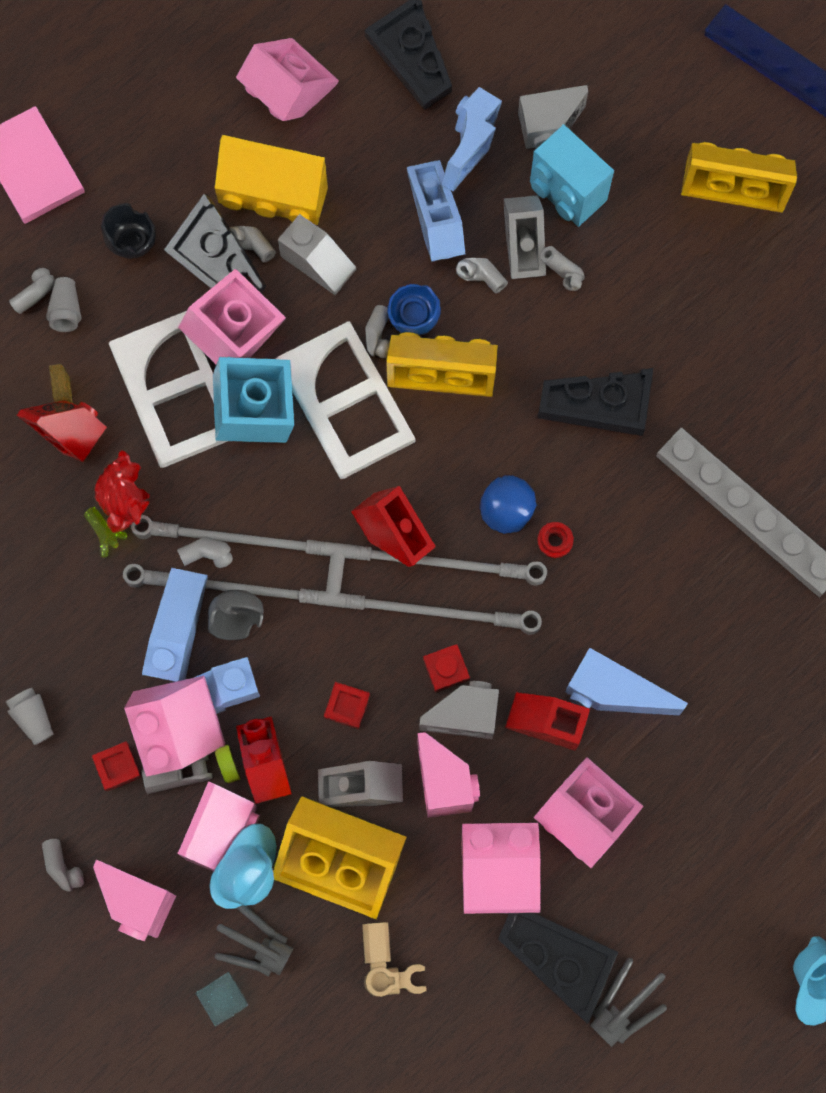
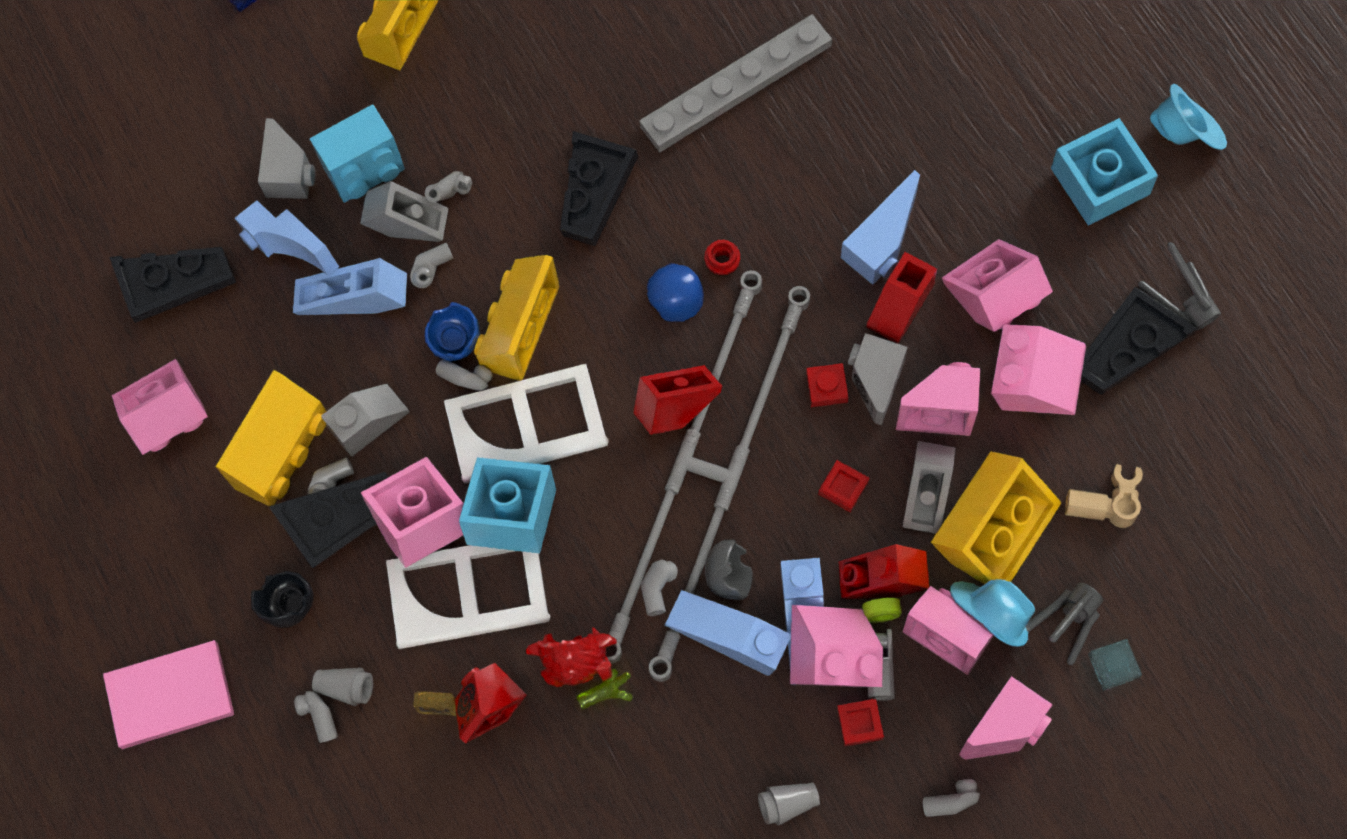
camera: 70 degrees left, 5 degrees down
(738, 897) = (1103, 171): none -> medium azure brick

